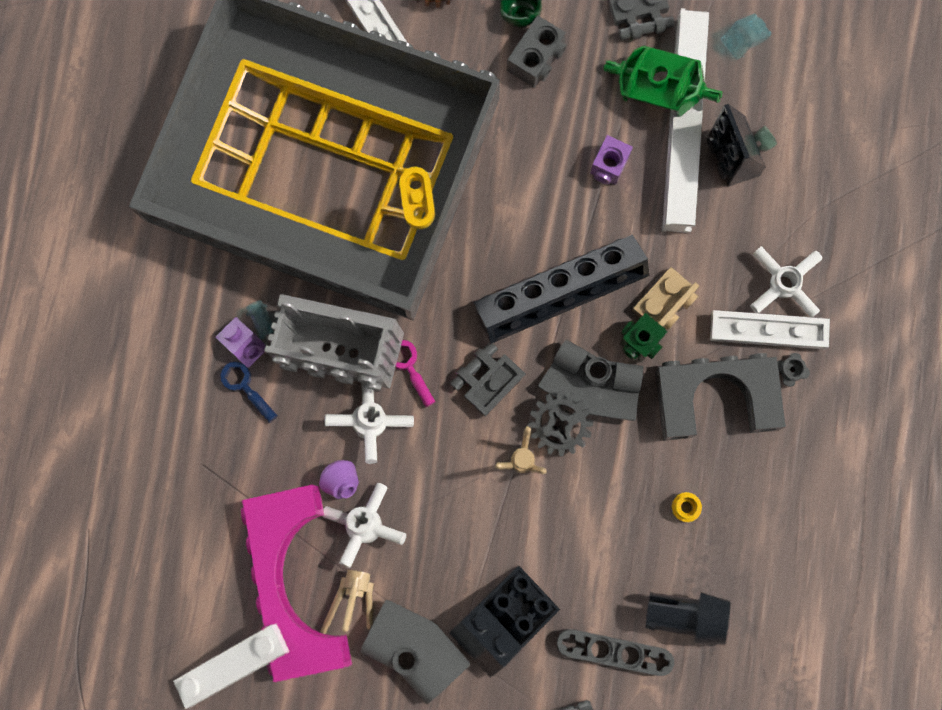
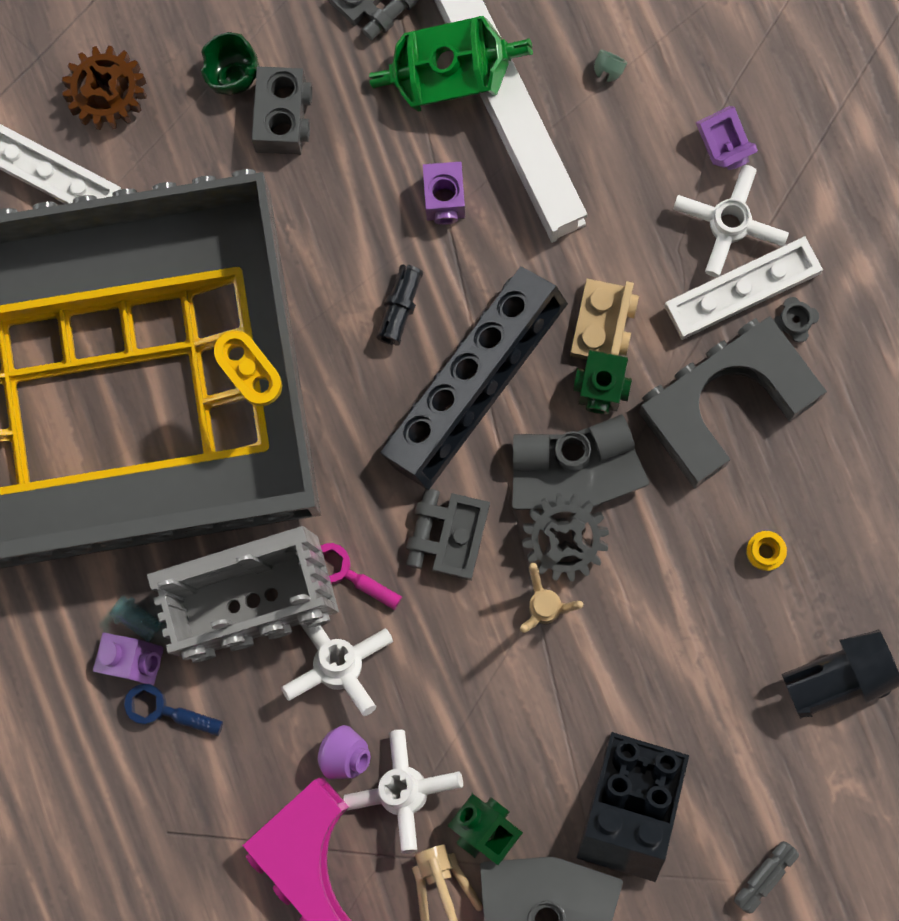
camera: 25 degrees left, 0 degrees up
(401, 579) = (484, 829): none -> dark green brick
(541, 216) = (399, 305): none -> black pin
(614, 655) = (782, 771): dark grey beam -> none
(735, 147) = (581, 96): black slope -> none
(813, 227) = (726, 139): none -> medium lavender bracket

